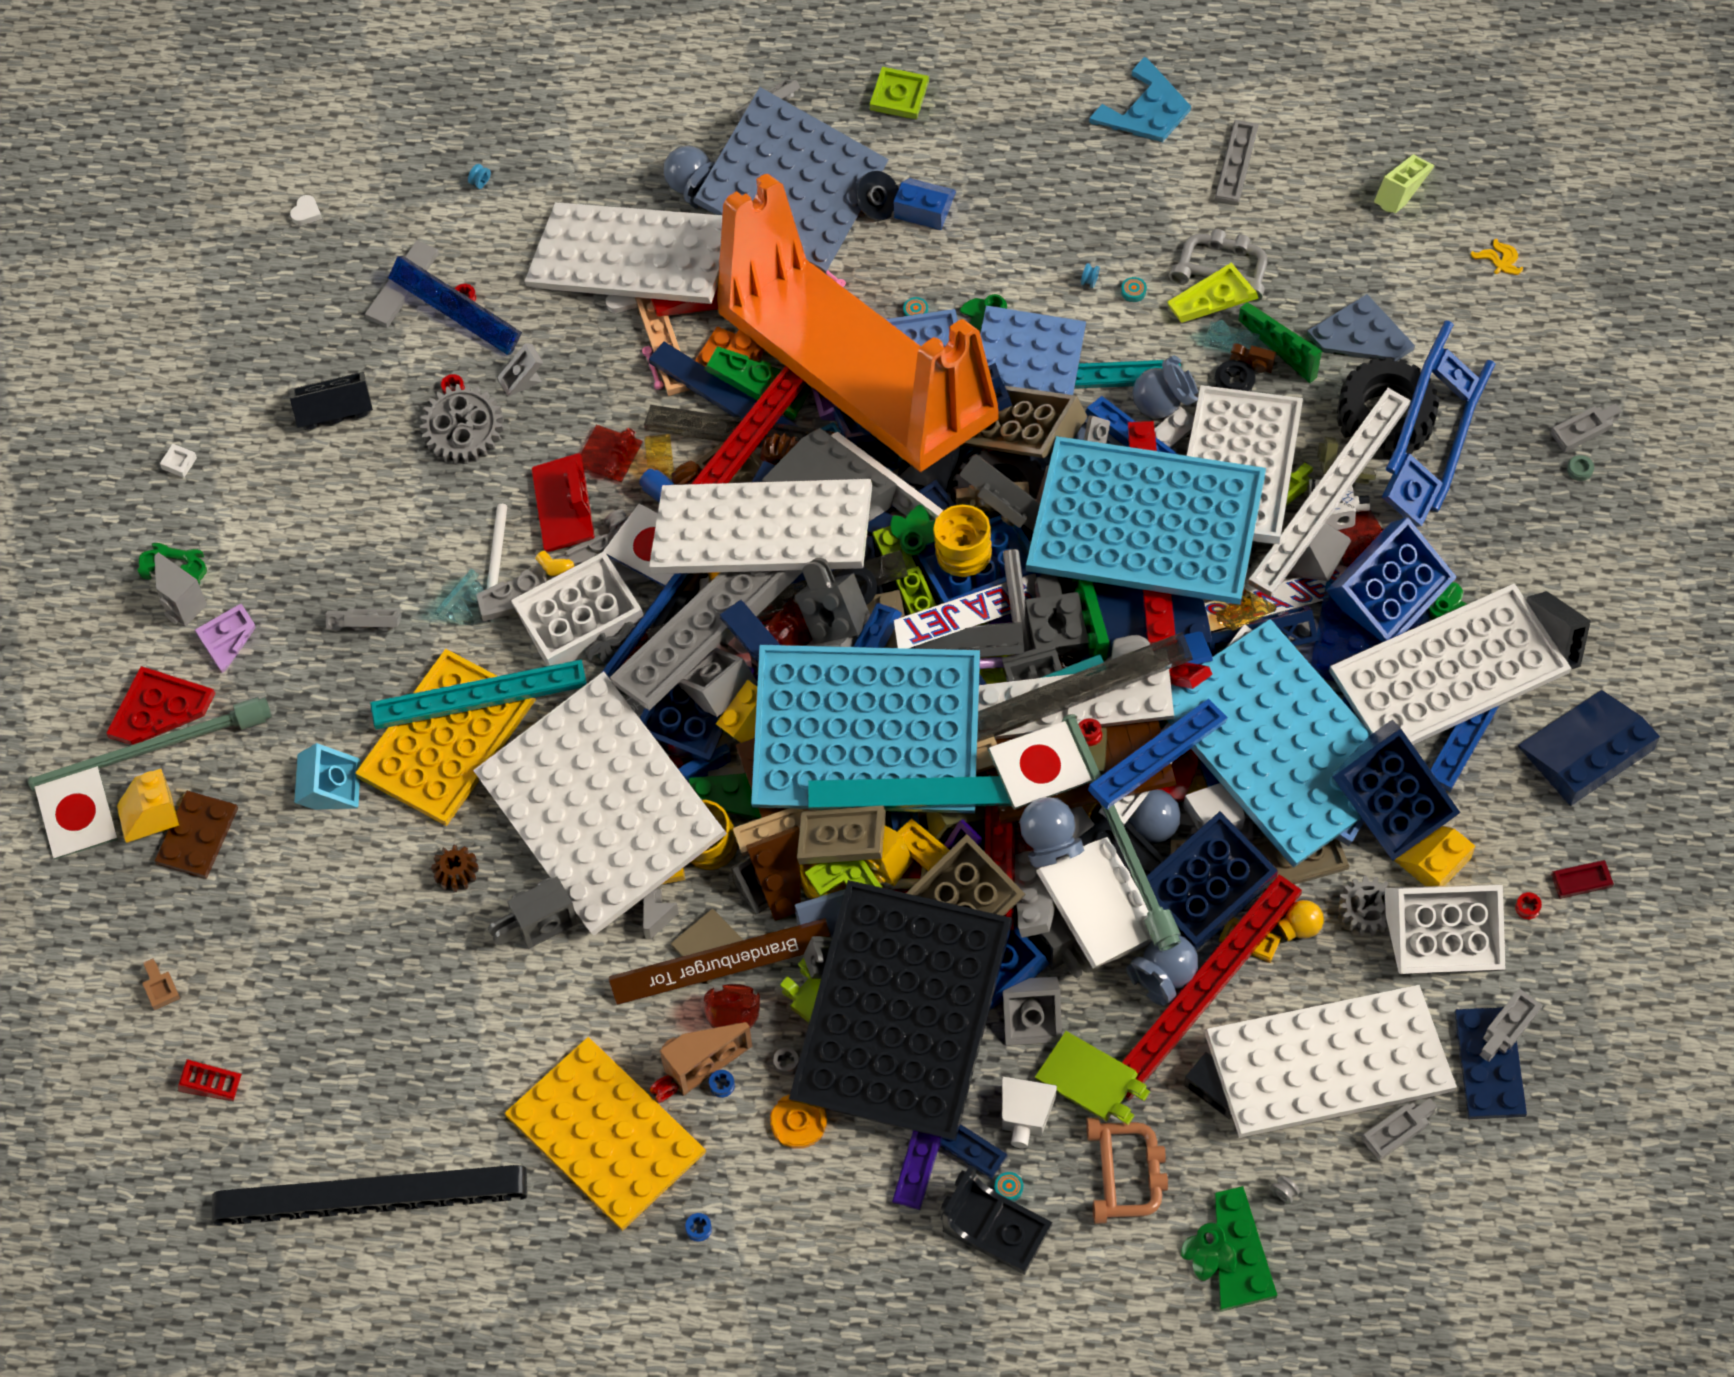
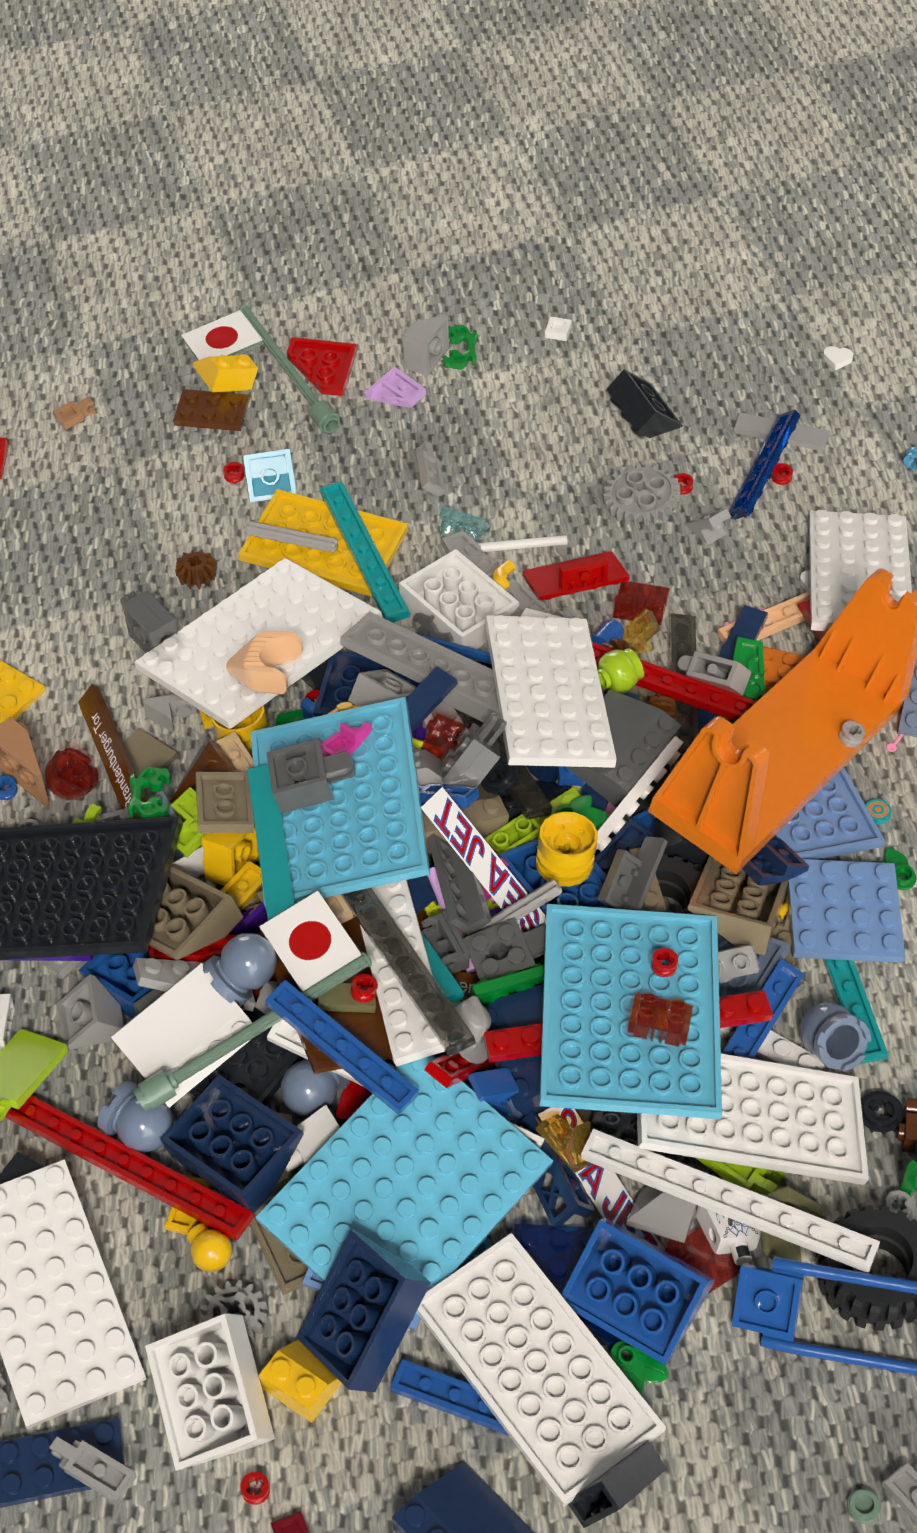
camera: 80 degrees right, 10 degrees down
(317, 820) = (233, 467): none -> red bush
(439, 762) = (291, 536): none -> light grey axle
(663, 793) = (256, 660): none -> light nougat animal
(741, 463) = (620, 670): none -> lime piece
(747, 393) = (716, 671): none -> light grey brick
(803, 709) = (347, 739): none -> dark pink slope
(822, 916) = (152, 779): none -> green helmet
(843, 743) = (310, 763): none -> dark grey brick
(844, 300) = (849, 739): none -> light grey bush
(1113, 486) = (664, 954): none -> red bush
(1170, 492) = (660, 1015): none -> clear red hinge
(1326, 378) = (902, 1196): none -> light grey bush

